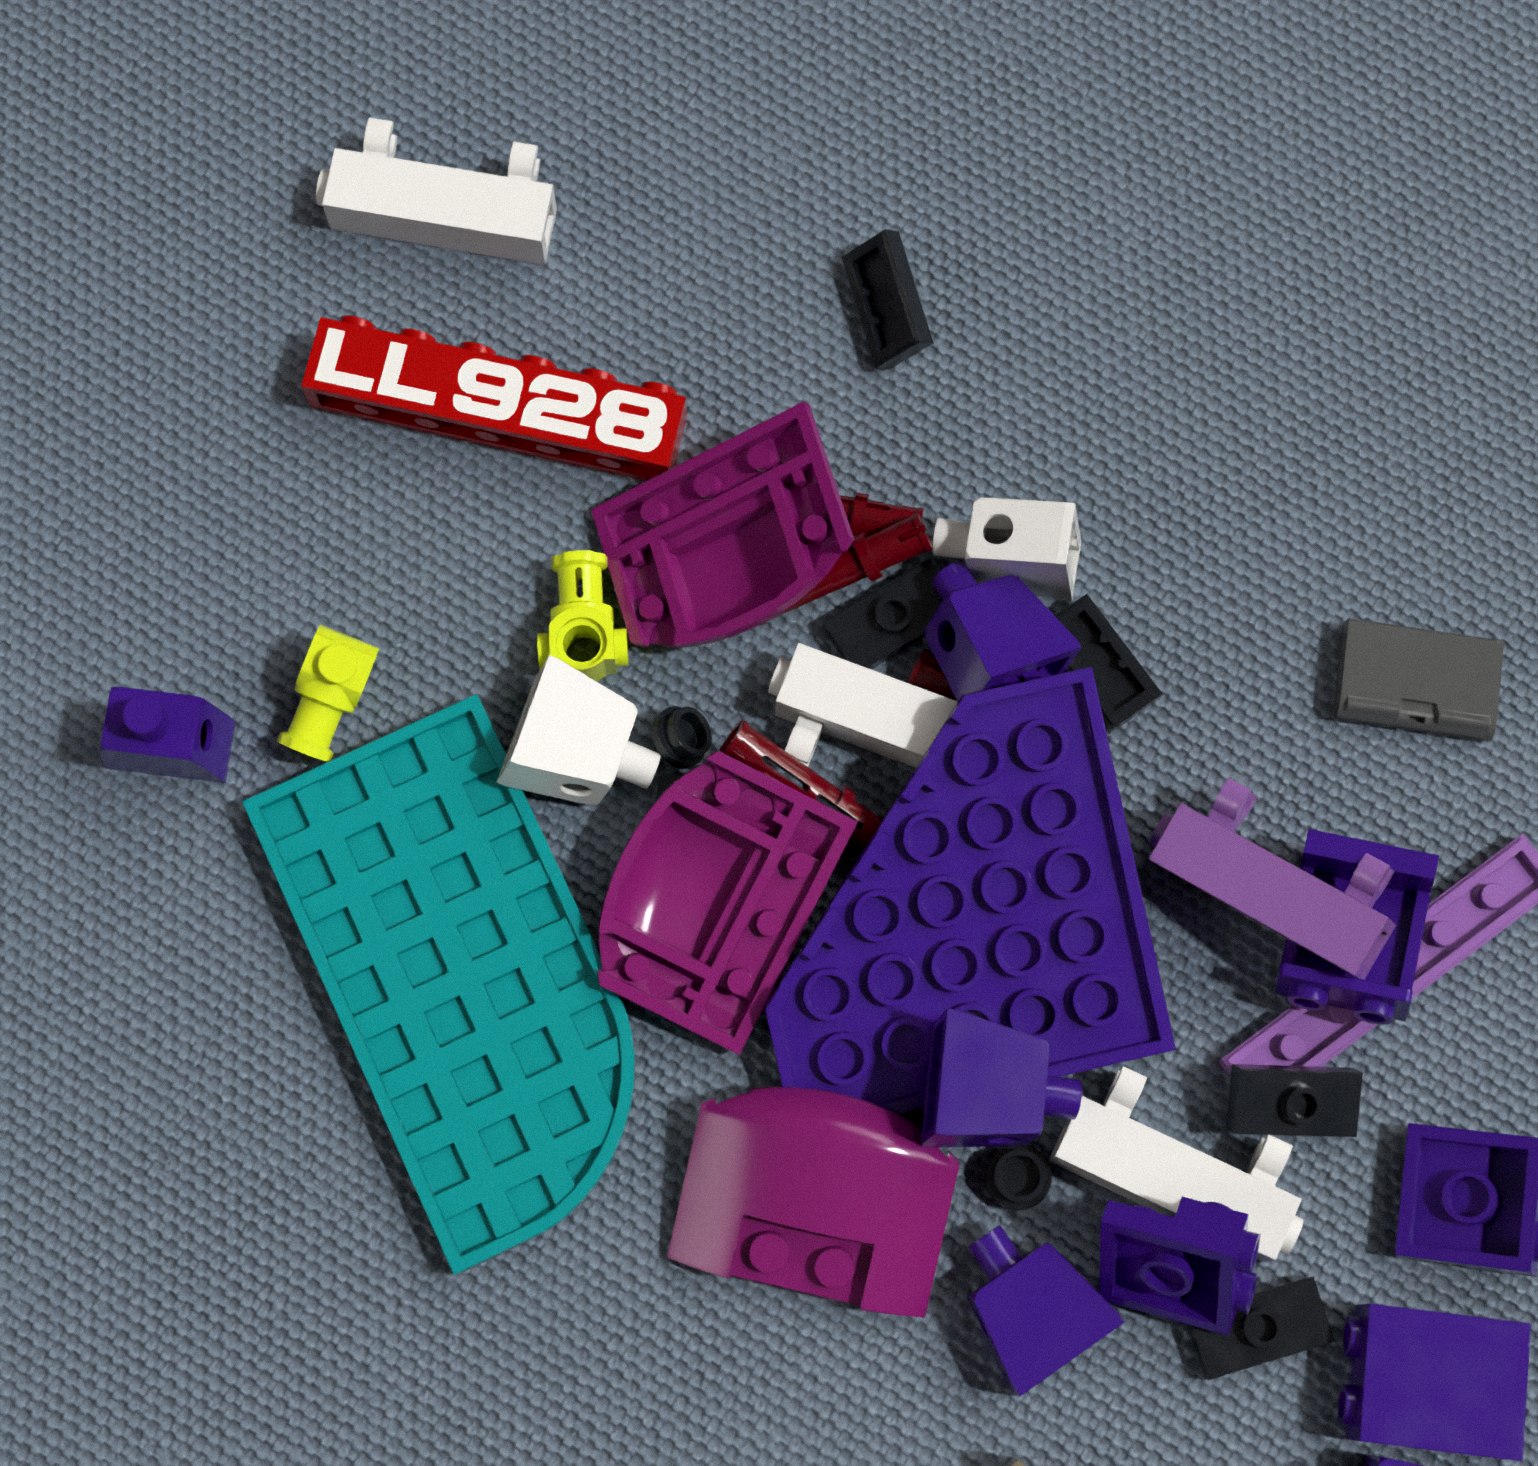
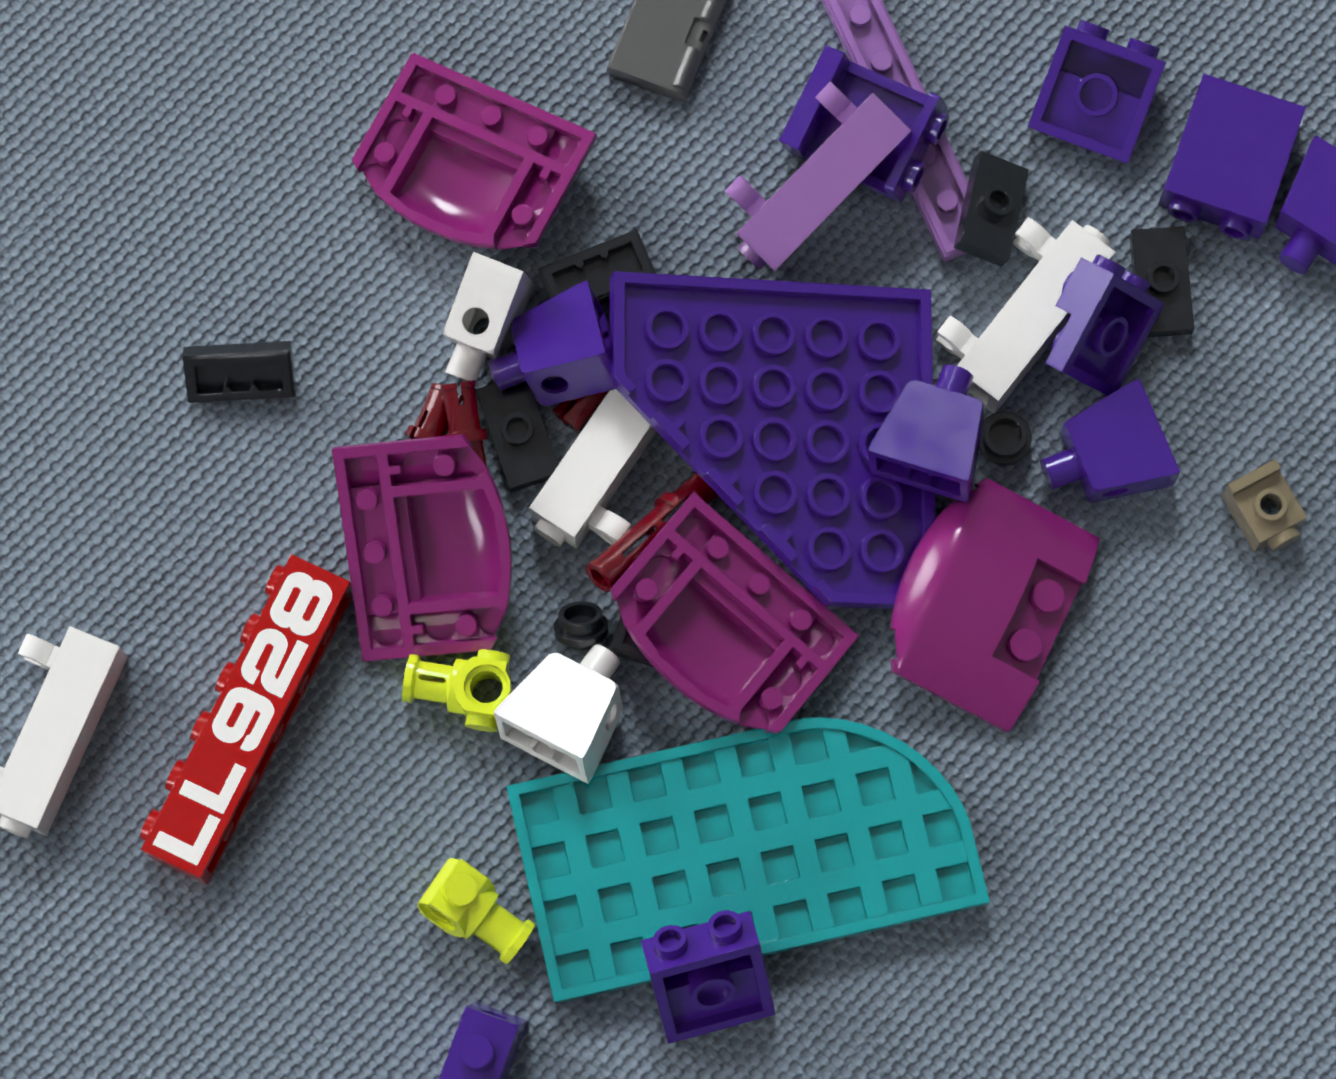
camera: 70 degrees left, 0 degrees up
(299, 963) = (708, 975): none -> dark purple plate
(1196, 488) = (469, 158): none -> magenta slope

